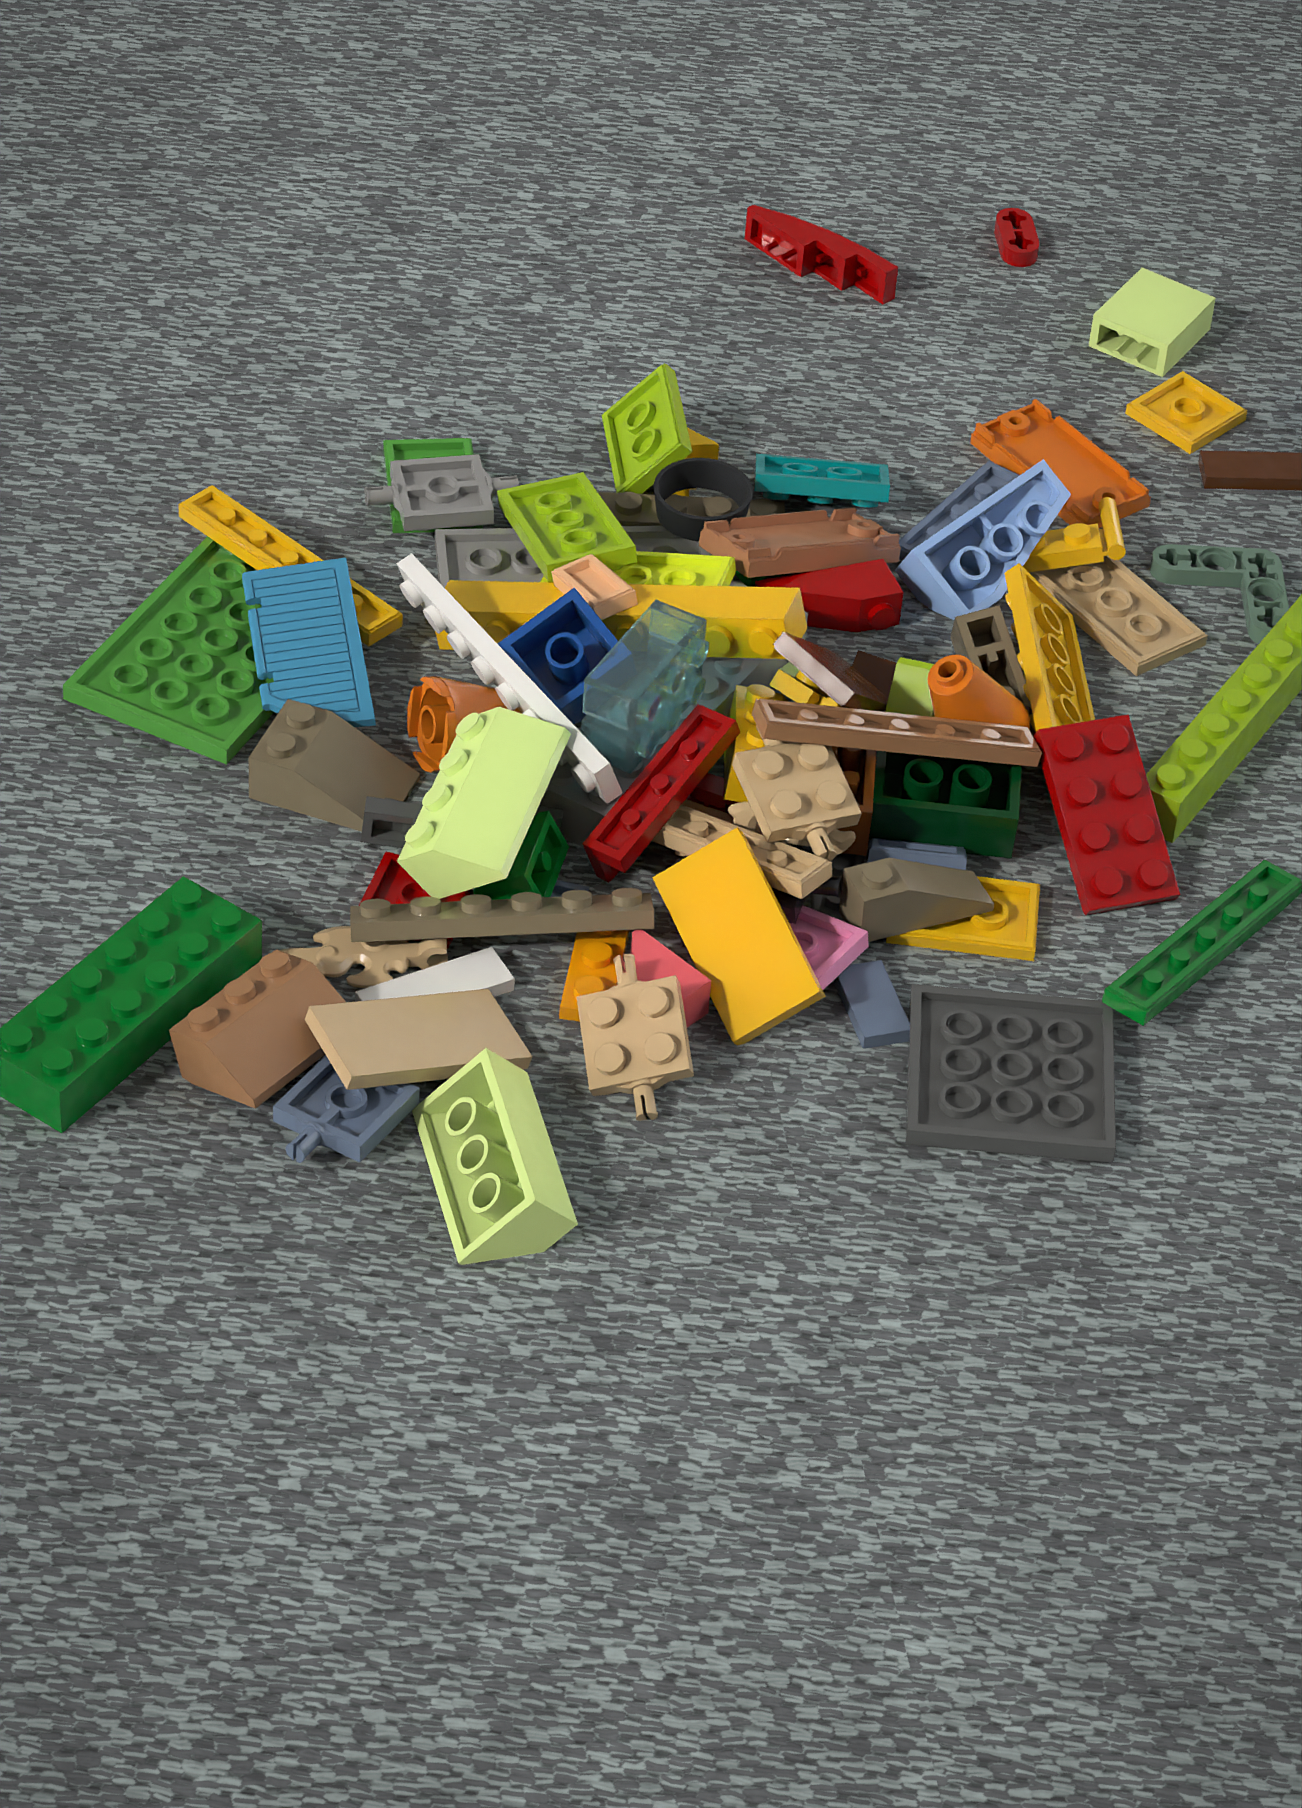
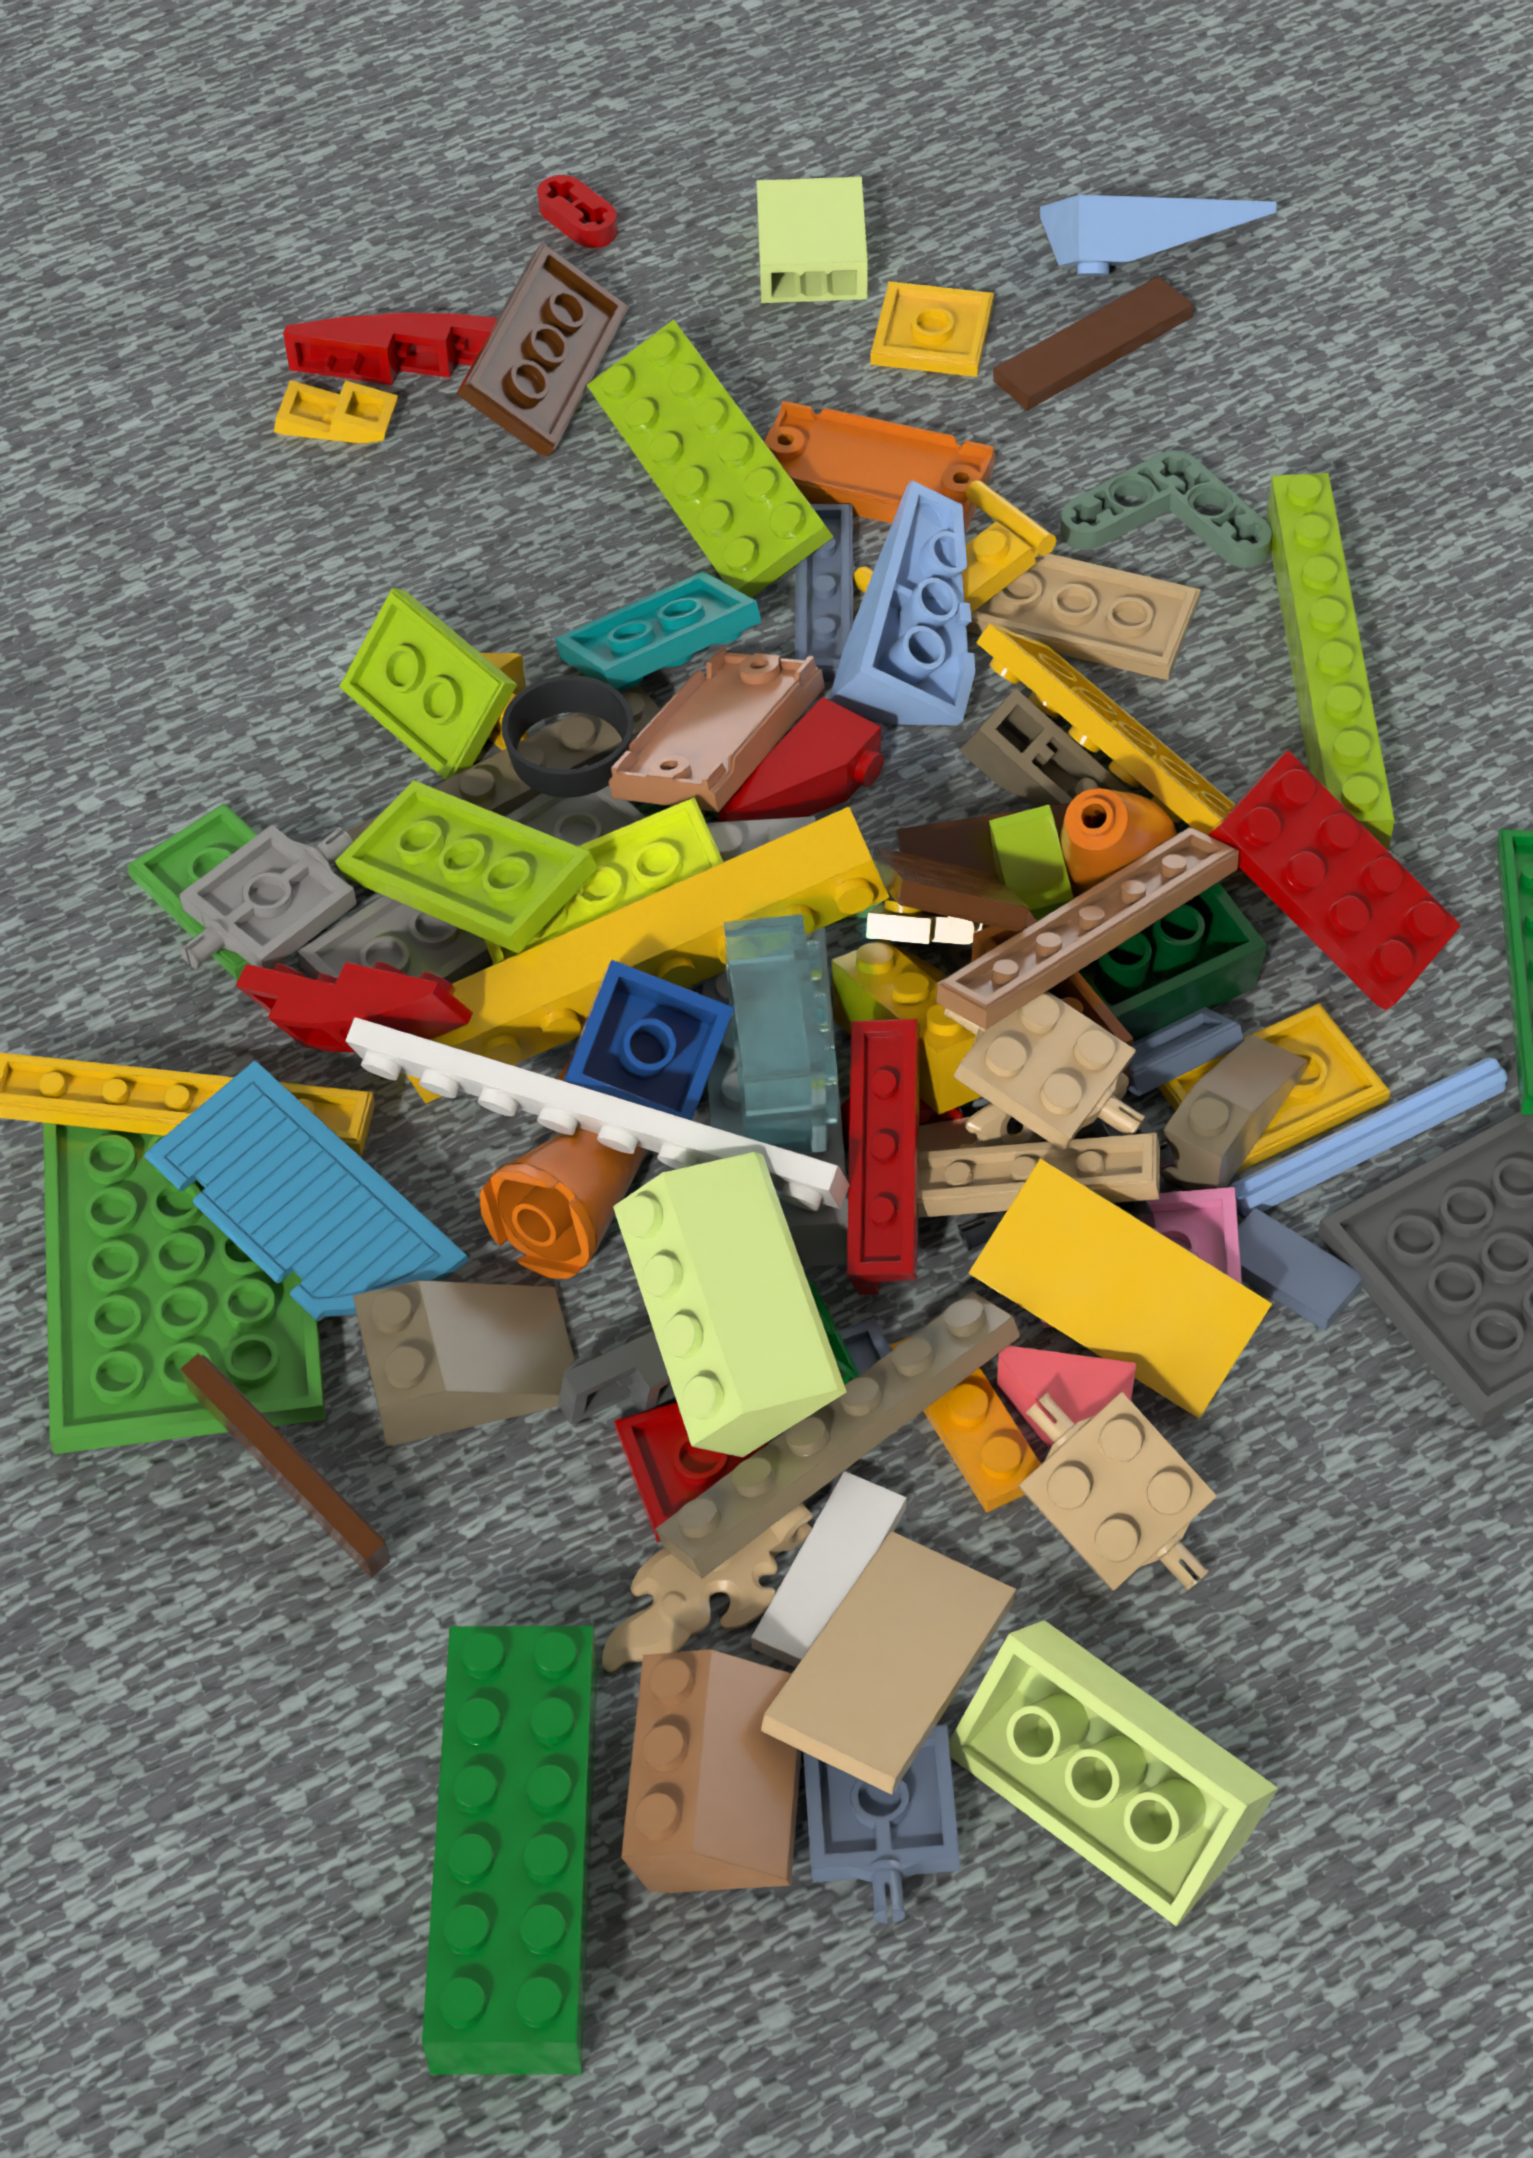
camera: 30 degrees left, 10 degrees up
(174, 761) = (286, 1465): none -> reddish brown tile
(445, 559) = (323, 1009): none -> red slope
(596, 584) = (593, 933): light nougat tile -> none
(752, 278) = (352, 416): none -> yellow slope
(906, 296) = (543, 350): none -> tile
(951, 408) = (709, 461): none -> lime plate
(995, 967) = (1370, 1136): none -> light blue axle

